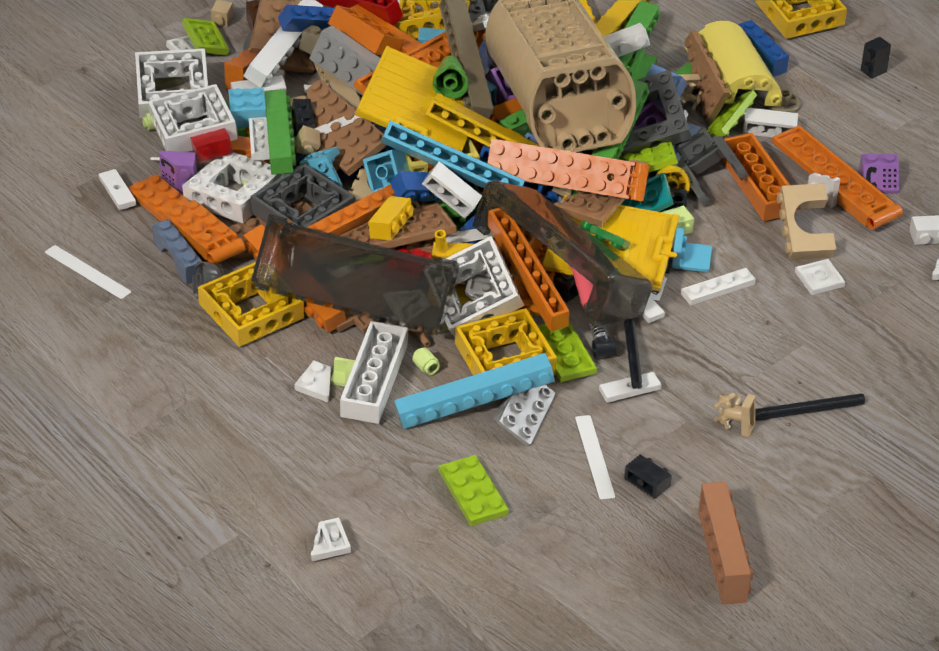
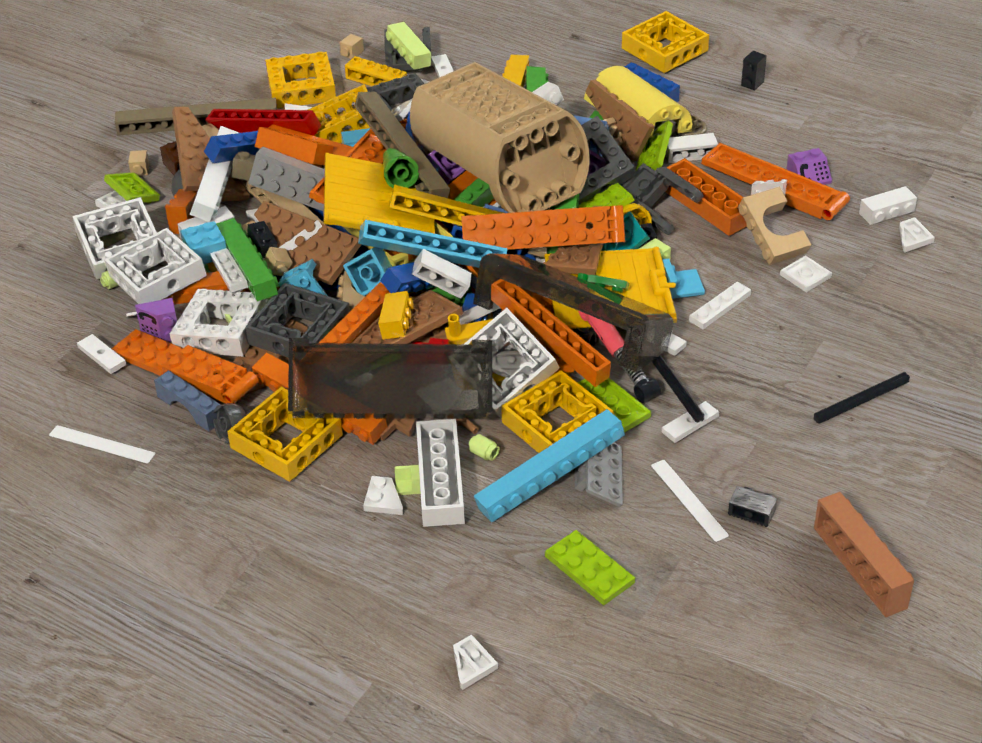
camera: 15 degrees left, 0 degrees up
(211, 145) = (185, 287): red brick -> none
(732, 411) = (804, 420): tan piece -> none

